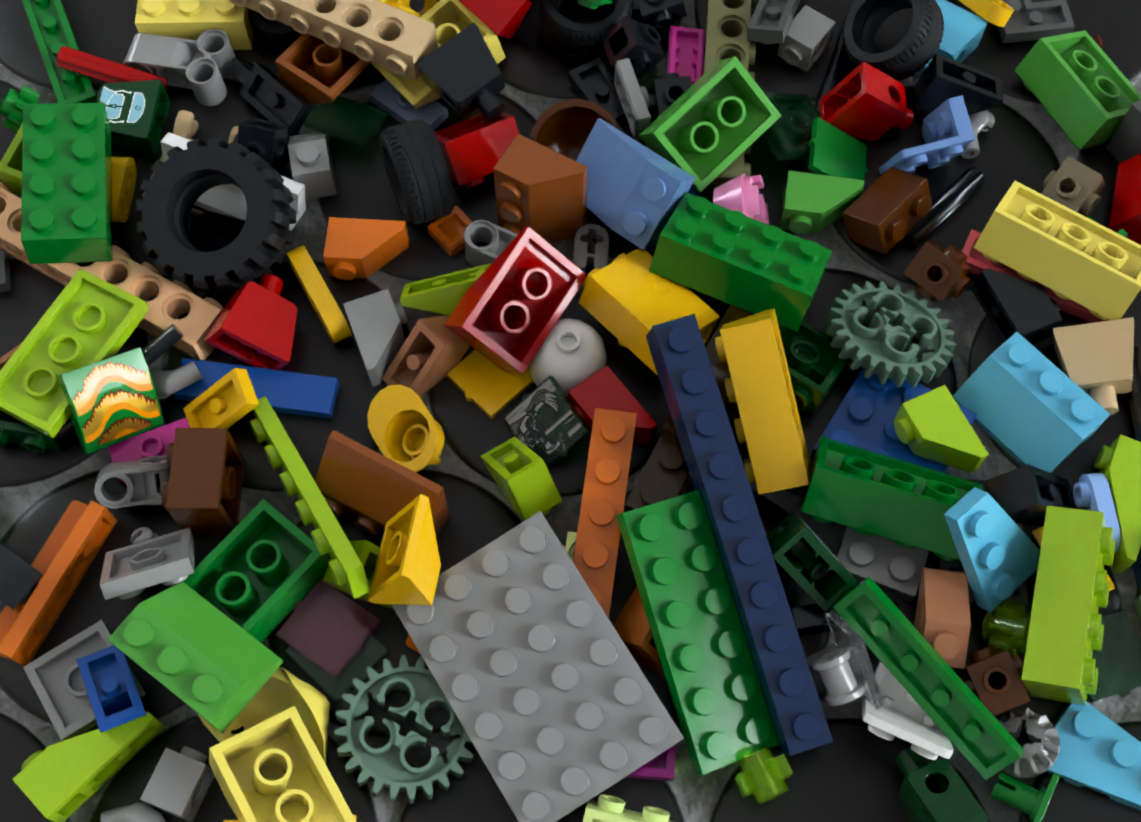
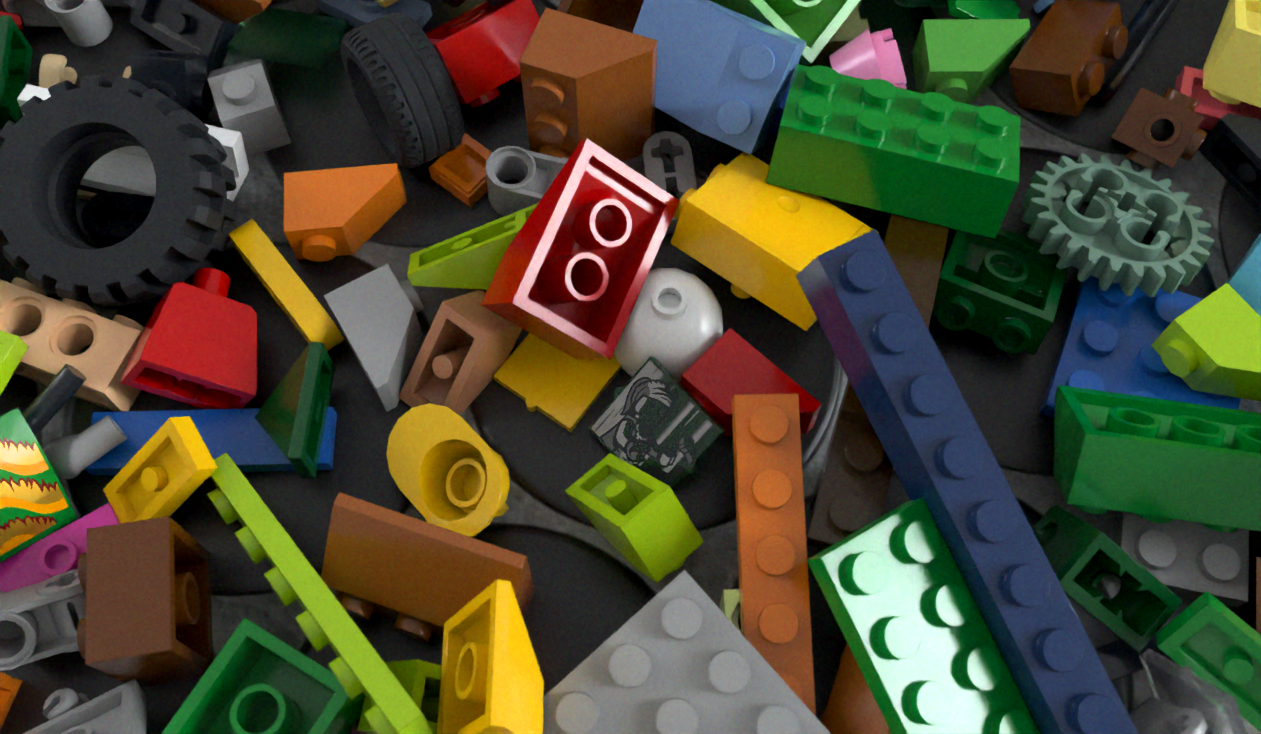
camera: 10 degrees left, 0 degrees up
(315, 376) = (299, 407): none -> dark green slope
(765, 402) = (986, 342): yellow slope -> none

